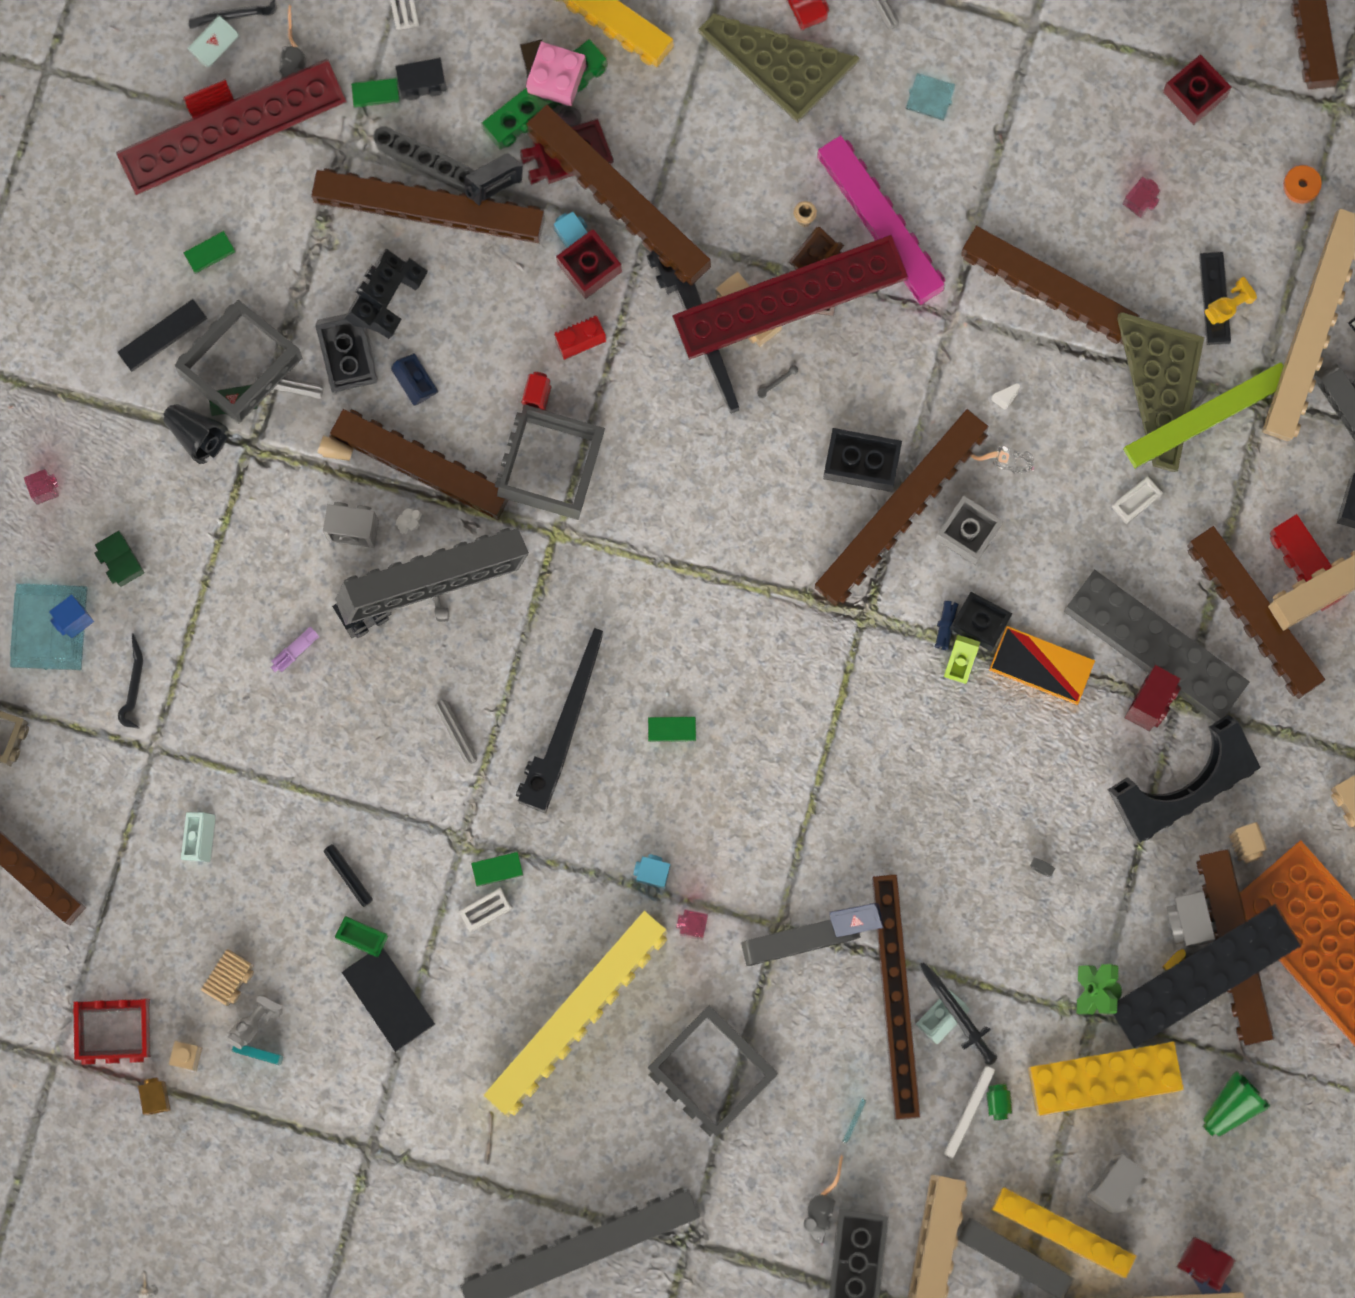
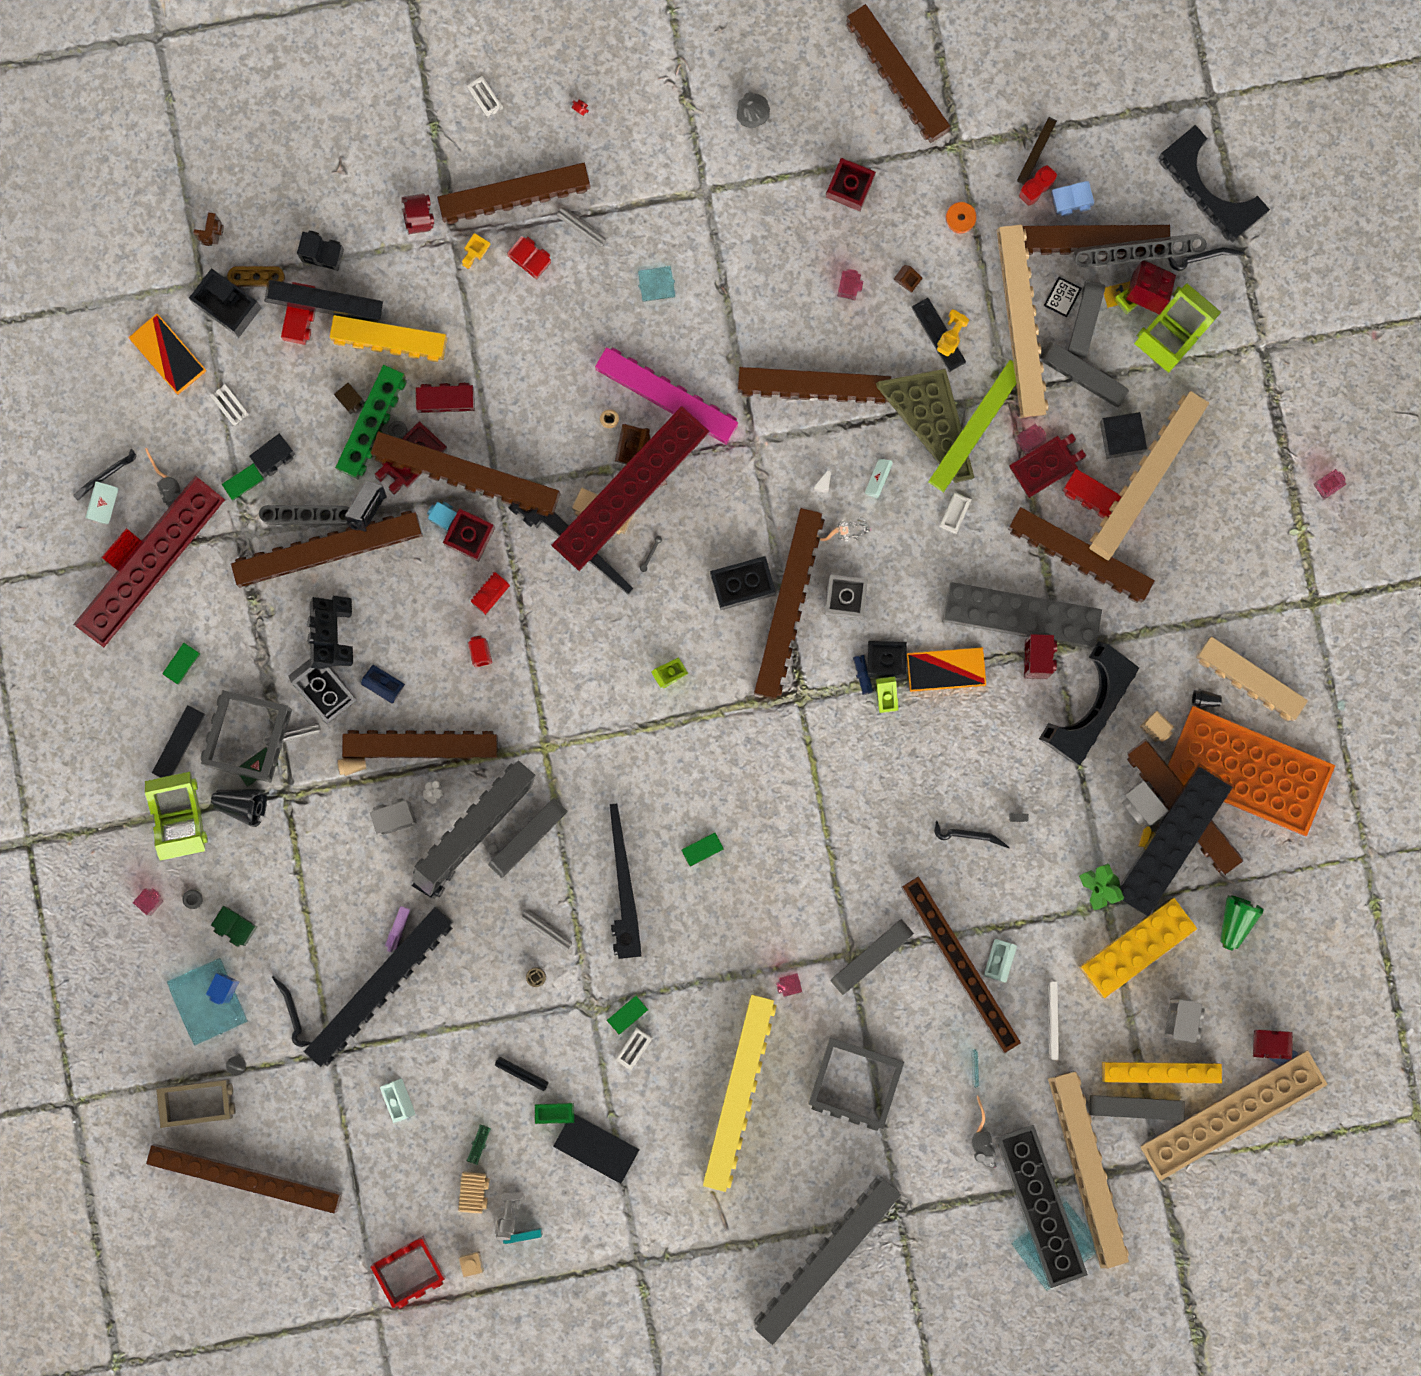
camera: 30 degrees left, 5 degrees up
(43, 711) = (236, 1065): none -> dark grey tile
(90, 509) = (192, 899): none -> dark grey tile
(120, 409) = (176, 815): none -> lime window
(154, 1096) = (463, 1304): pearl gold brick -> none
(241, 702) = (378, 987): none -> black brick
(261, 929) = (478, 1144): none -> clear green pin
(417, 777) = (535, 977): none -> dark tan wheel
(486, 621) = (527, 838): none -> dark grey beam
(556, 74) = (373, 404): bright pink brick -> none
(558, 423) = (511, 664): dark grey window -> none
(638, 107) = (445, 398): none -> dark red brick
(652, 871) = (740, 960): medium azure brick -> none
(732, 518) = (669, 673): none -> lime slope
(784, 68) = (540, 314): olive wing -> none
(856, 919) = (906, 924): slope -> none
(960, 1016) = (1017, 957): black sword -> none
(977, 859) = (968, 834): none -> black piece
(999, 1102) = (1070, 1002): green brick -> none
(1071, 421) = (878, 478): none -> light aqua slope
(1211, 221) = (908, 278): none -> reddish brown slope
(1262, 458) = (1031, 438): none -> clear pink brick
(1265, 496) = (1046, 465): none -> dark red tile
(1317, 839) = (1203, 698): none -> black cone

